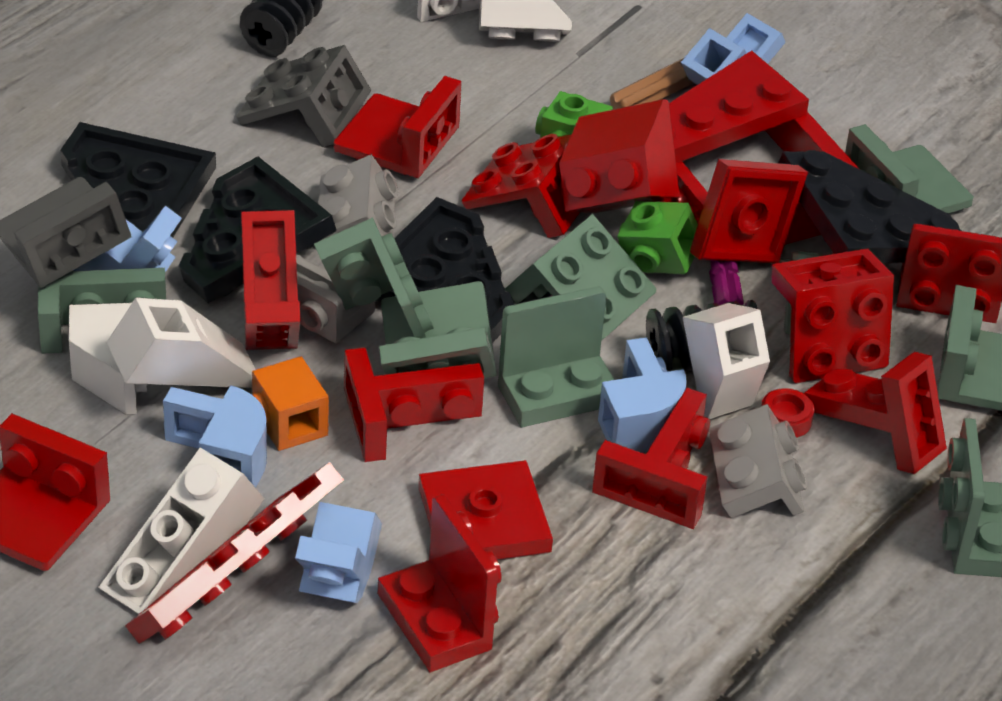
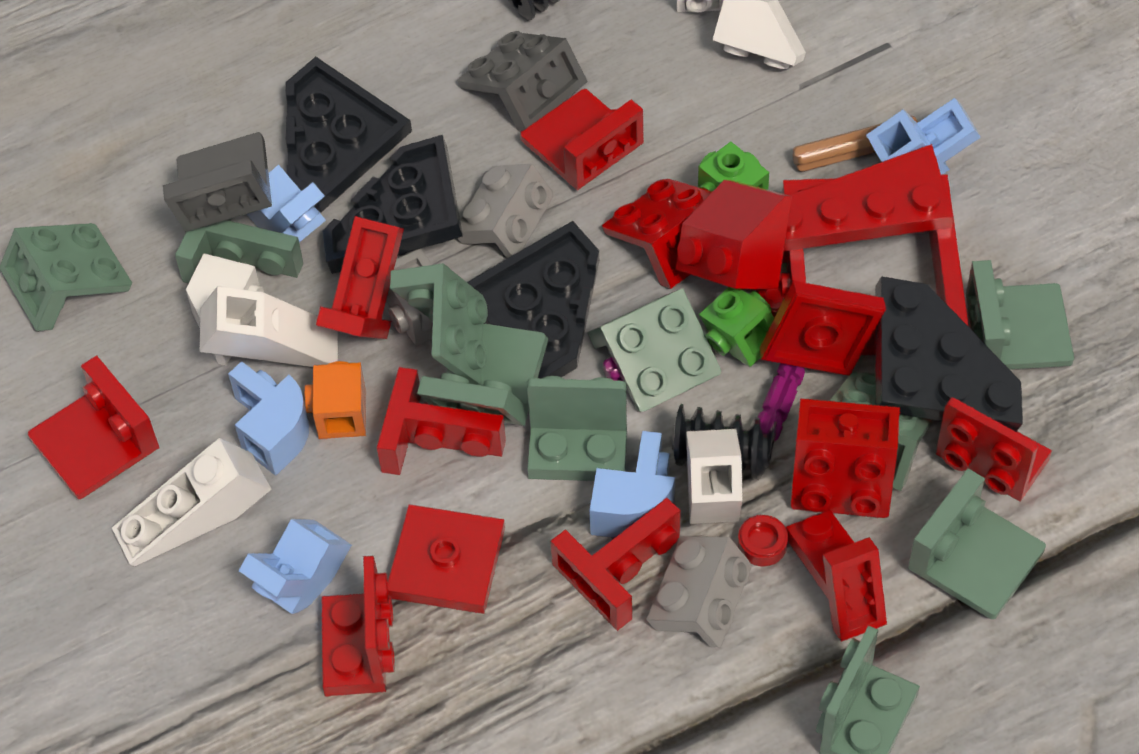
camera: 30 degrees right, 15 degrees up
(241, 550) = (225, 534): wing -> none

